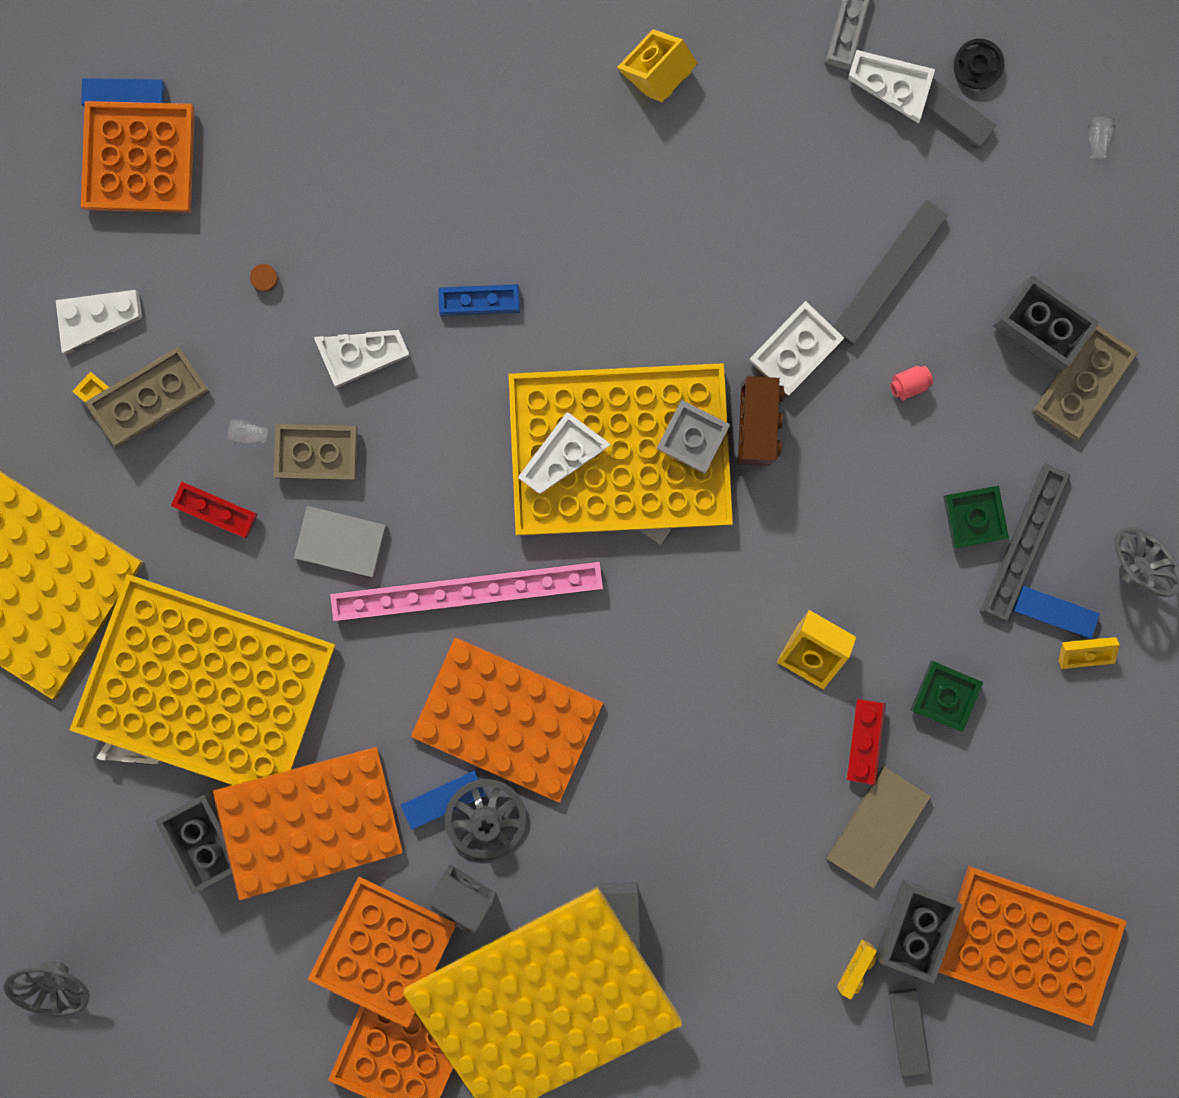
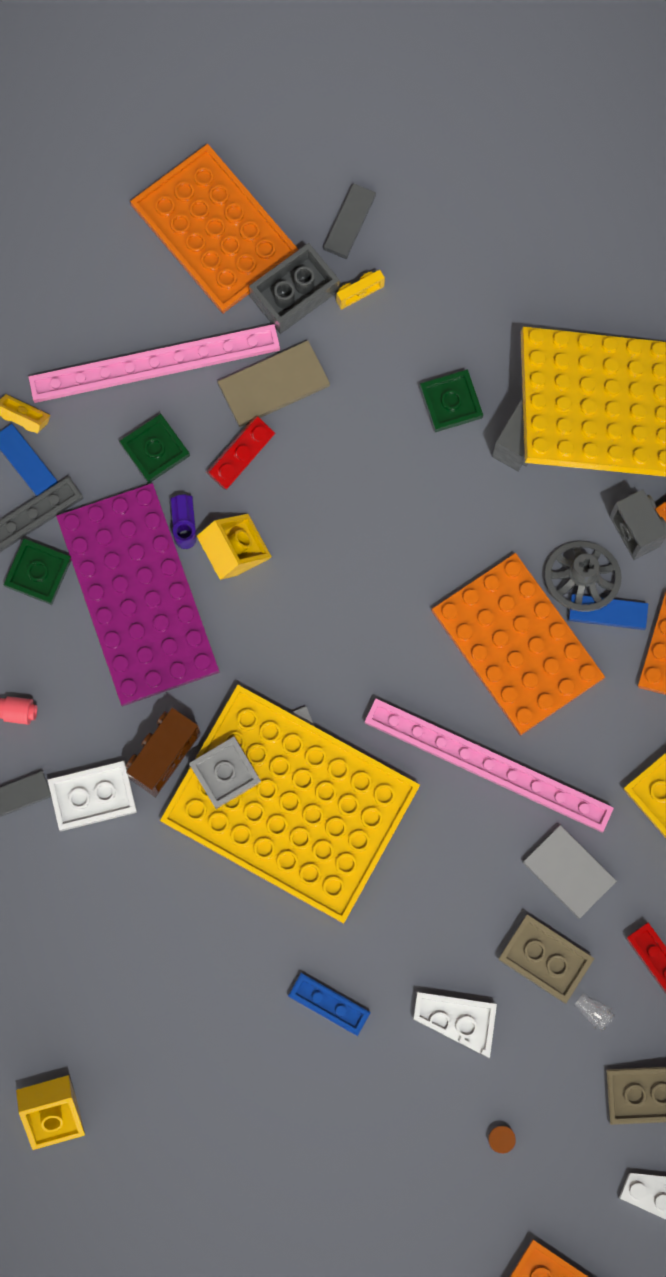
camera: 150 degrees left, 10 degrees down
(562, 453) = (340, 826): white wing -> none
(705, 912) = (451, 400): none -> dark green plate
(875, 553) = (137, 594): none -> magenta plate
(877, 646) = (183, 520): none -> dark purple piece
(999, 777) = (154, 363): none -> bright pink plate

